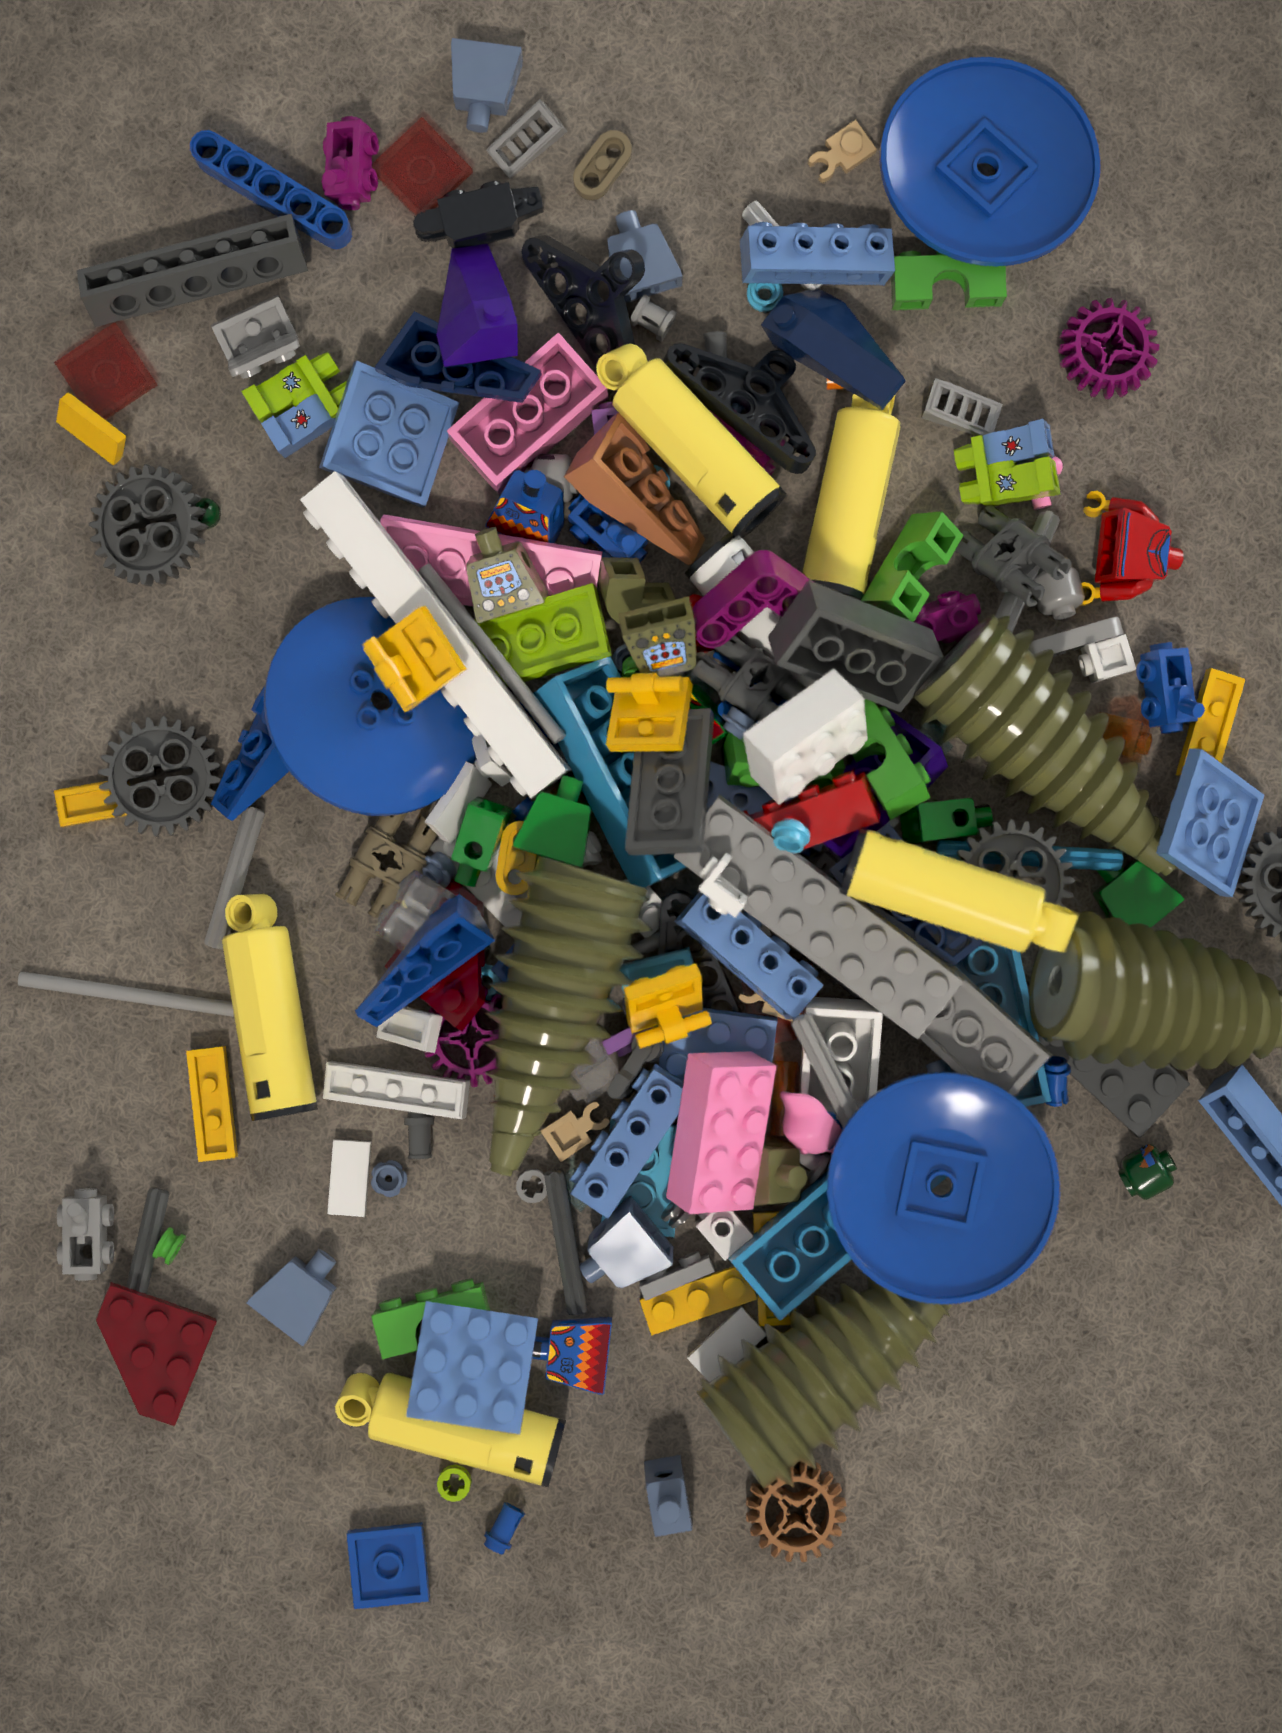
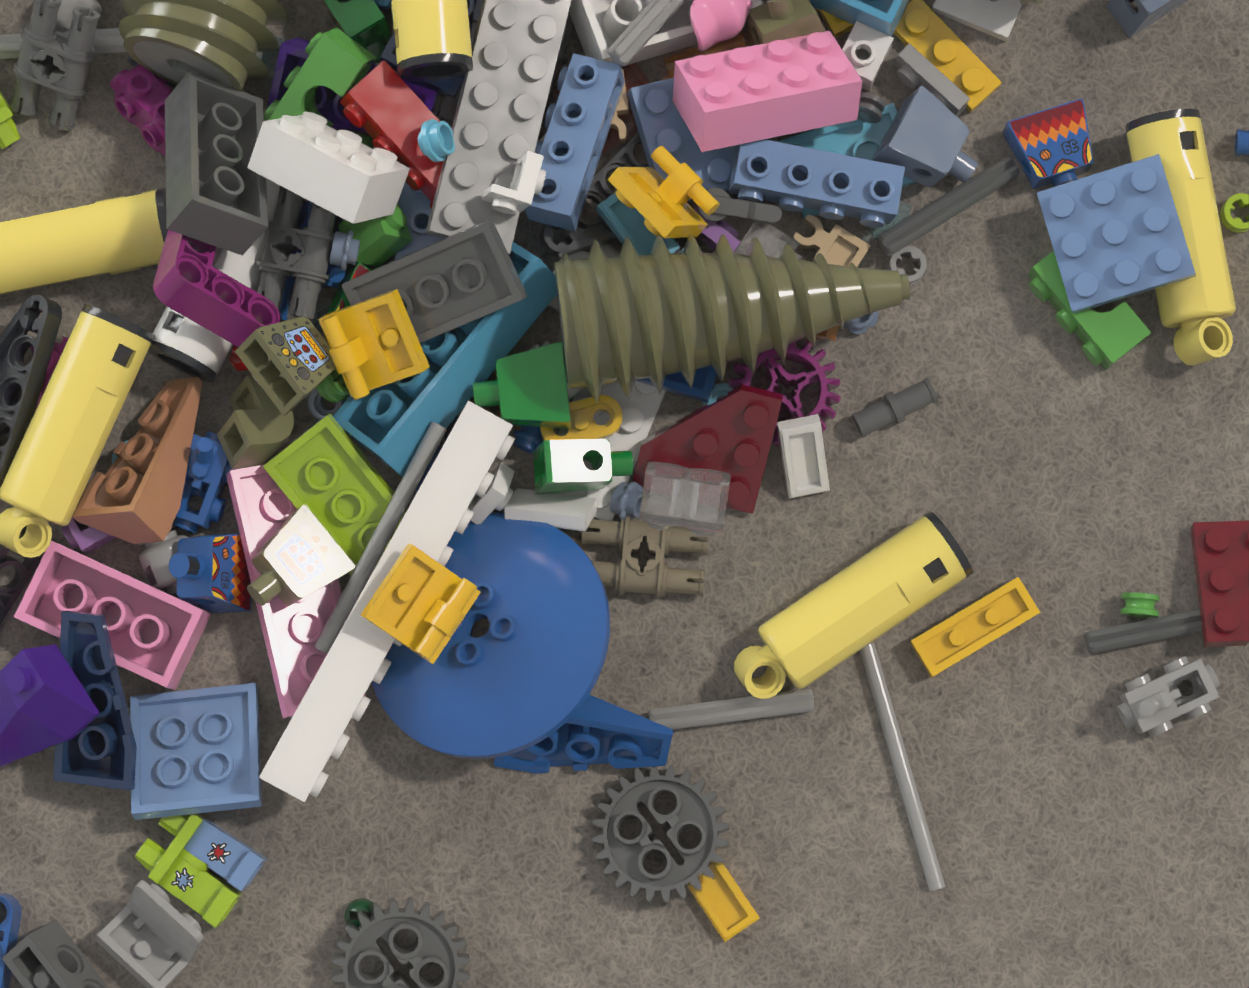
camera: 115 degrees left, 5 degrees down
(296, 1296) = (1128, 451): sand blue torso -> none
(349, 1177) = (985, 454): white tile -> none
(379, 1183) = (975, 406): sand blue plate -> none
(396, 1089) = (873, 442): white tile -> none
(436, 950) = (712, 455): blue wedge -> none
(923, 543) = (82, 157): bright green arch -> none

